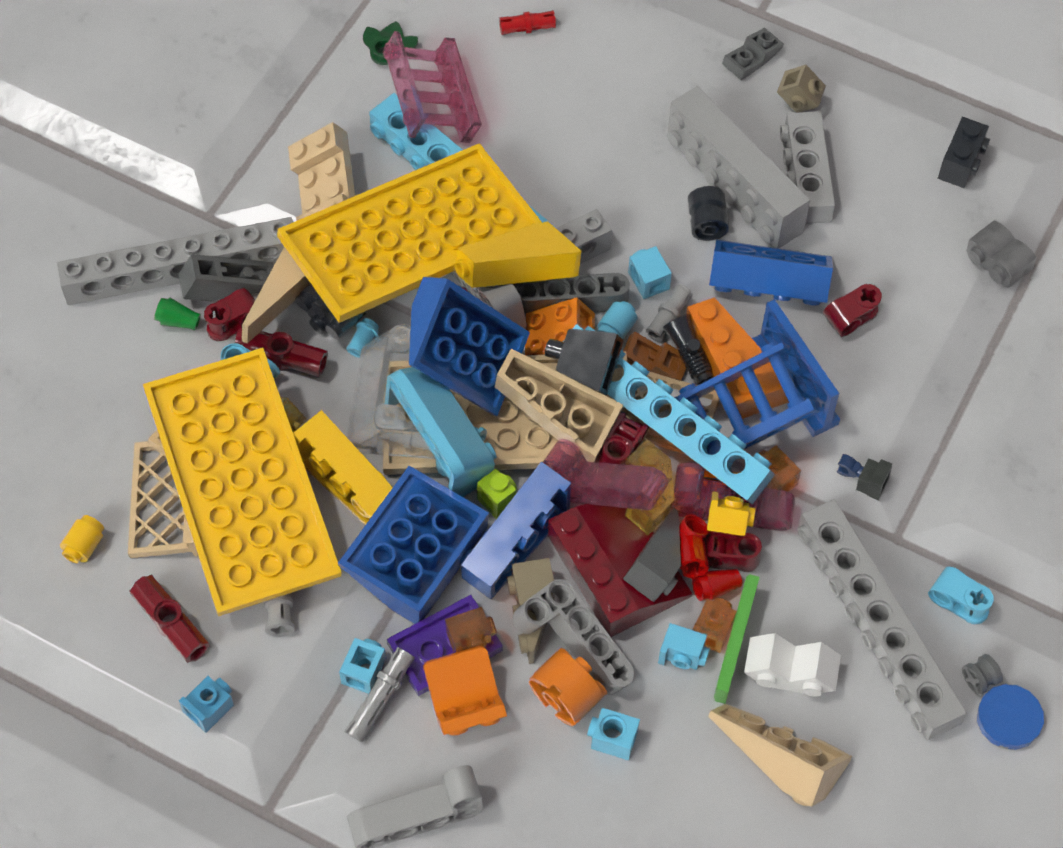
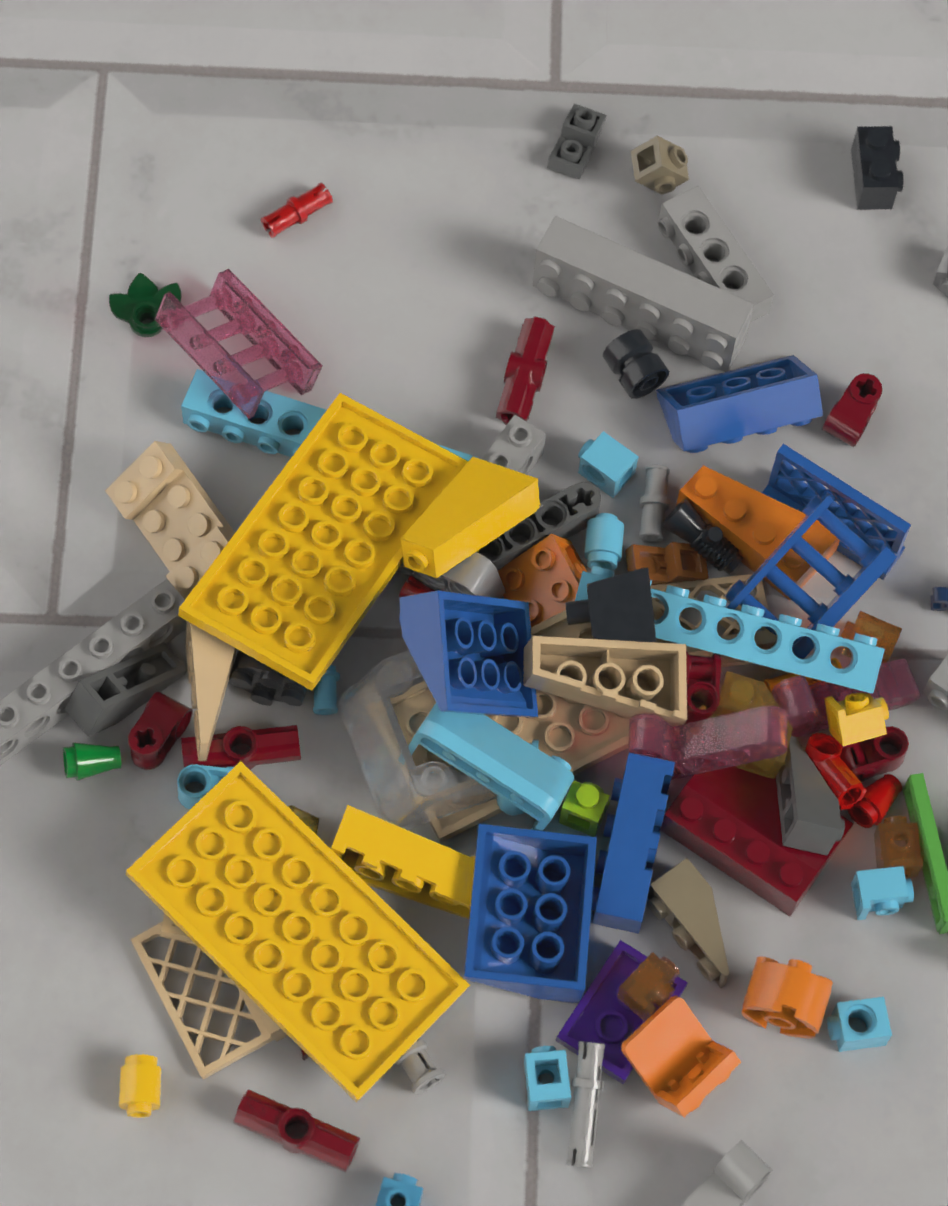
camera: 30 degrees left, 5 degrees up
(576, 640) = (813, 944): light grey beam -> none
(627, 186) = (525, 369): none -> dark red piece

